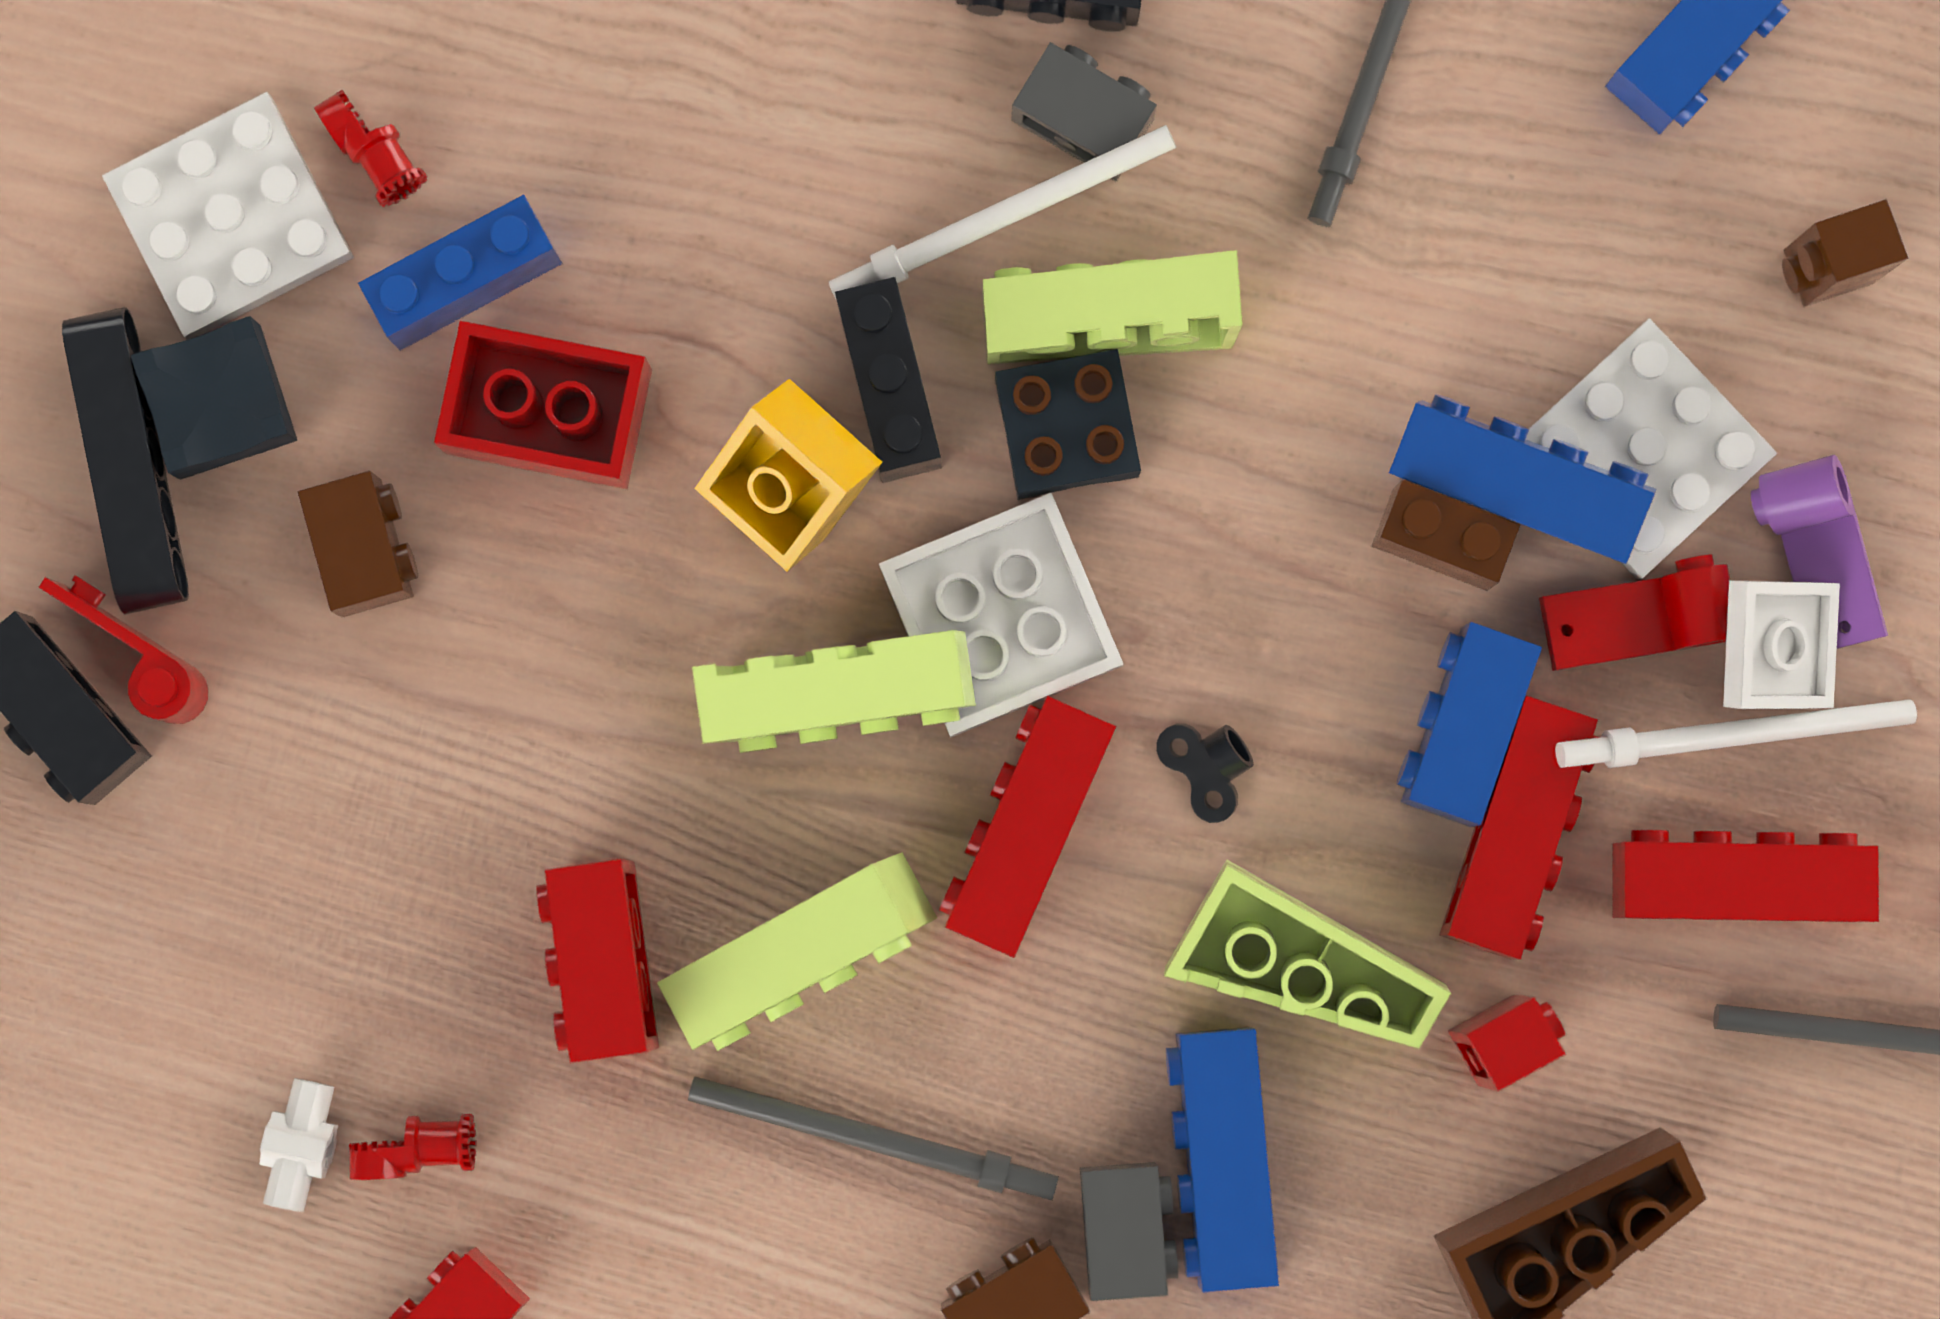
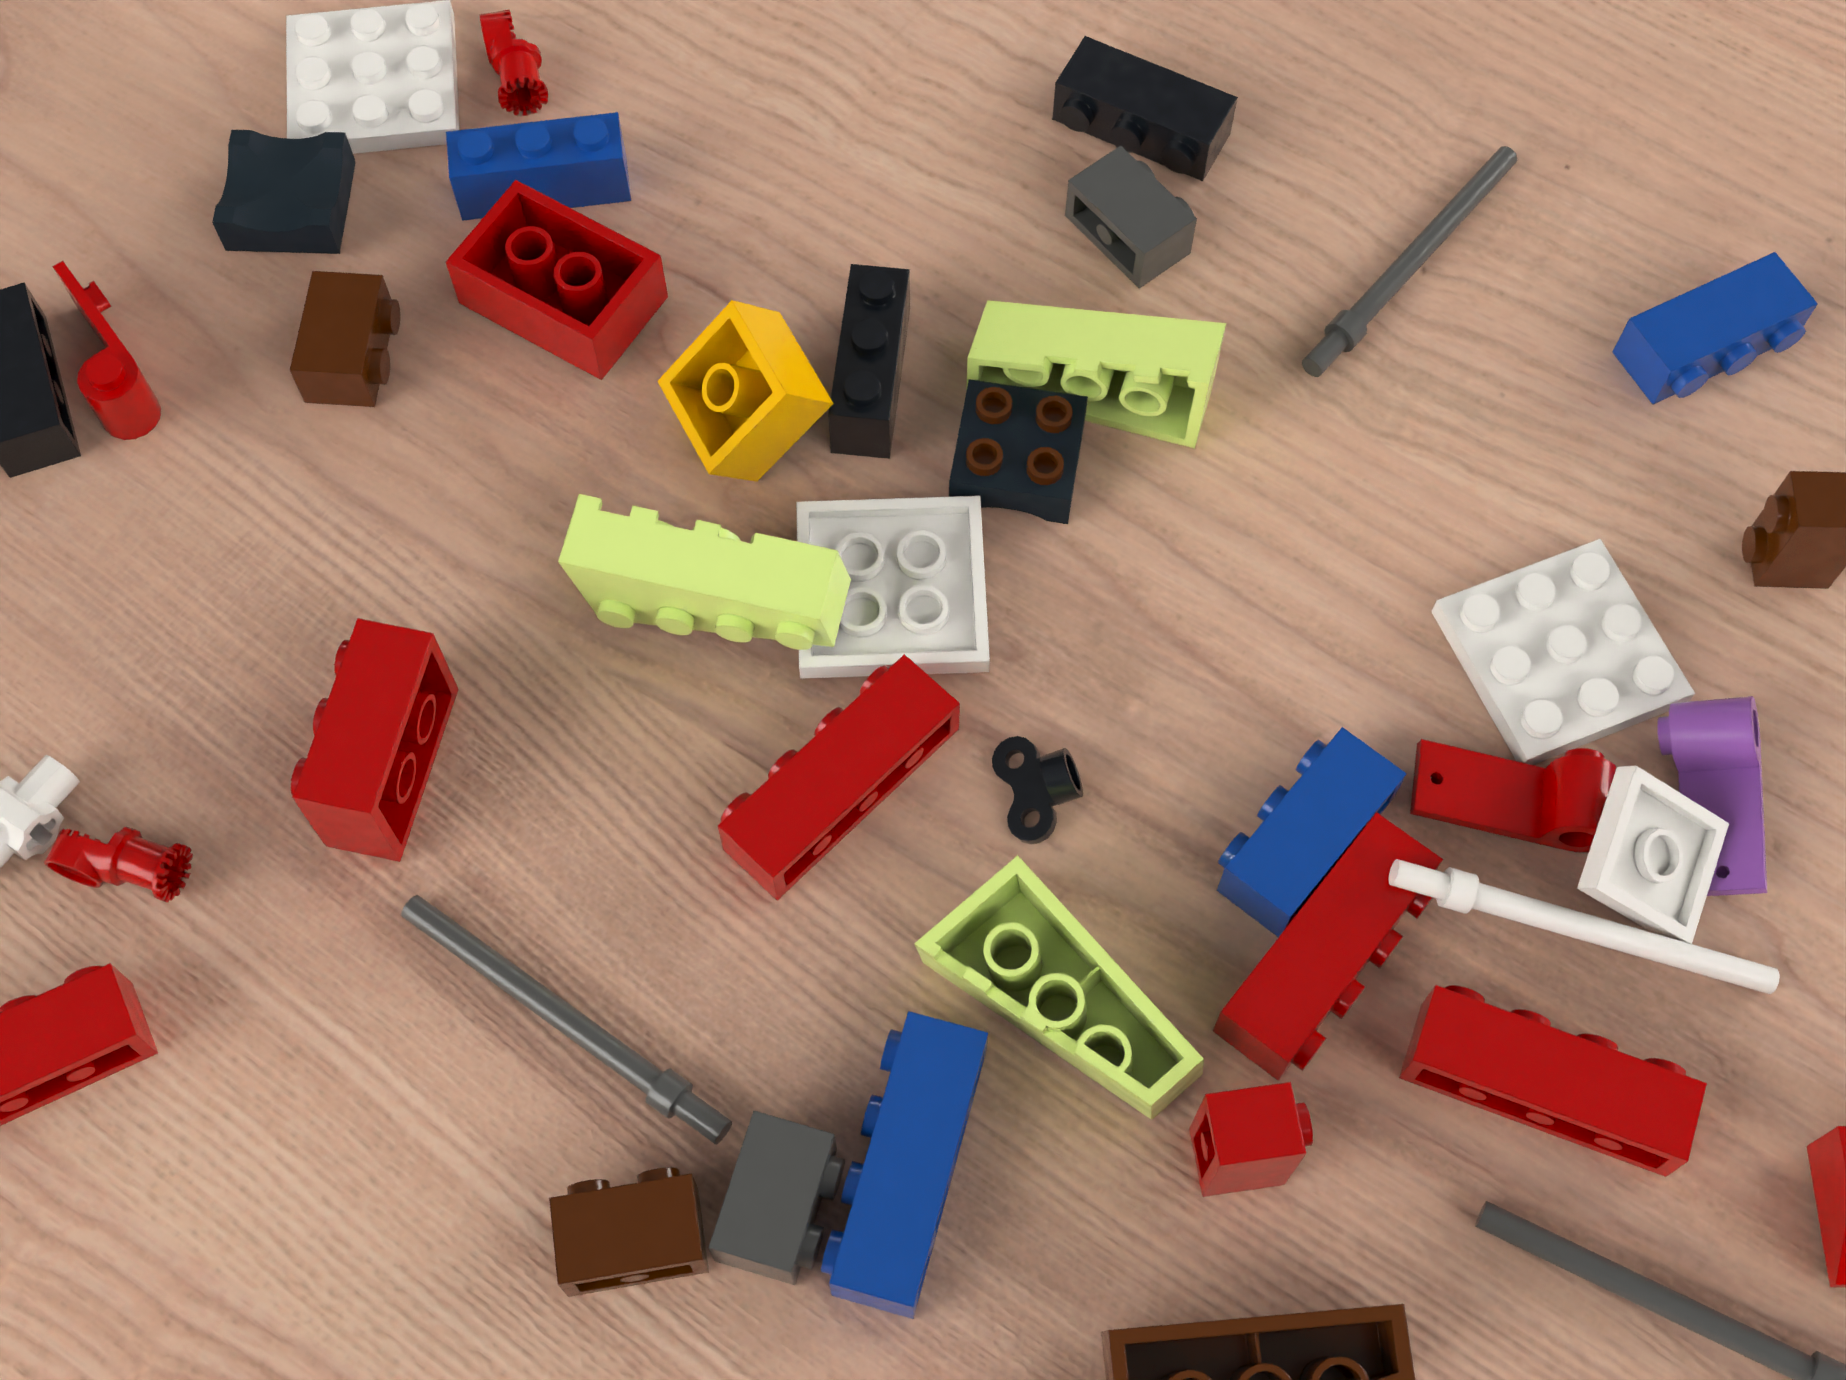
camera: 20 degrees right, 20 degrees down
(124, 462) = (177, 231): black beam -> none
(797, 950) = (570, 802): yellowish green wedge -> none
(898, 262) = (1051, 258): white bar -> none
(1445, 535) = (1342, 652): reddish brown brick -> none
(1522, 479) = (1438, 623): blue brick -> none

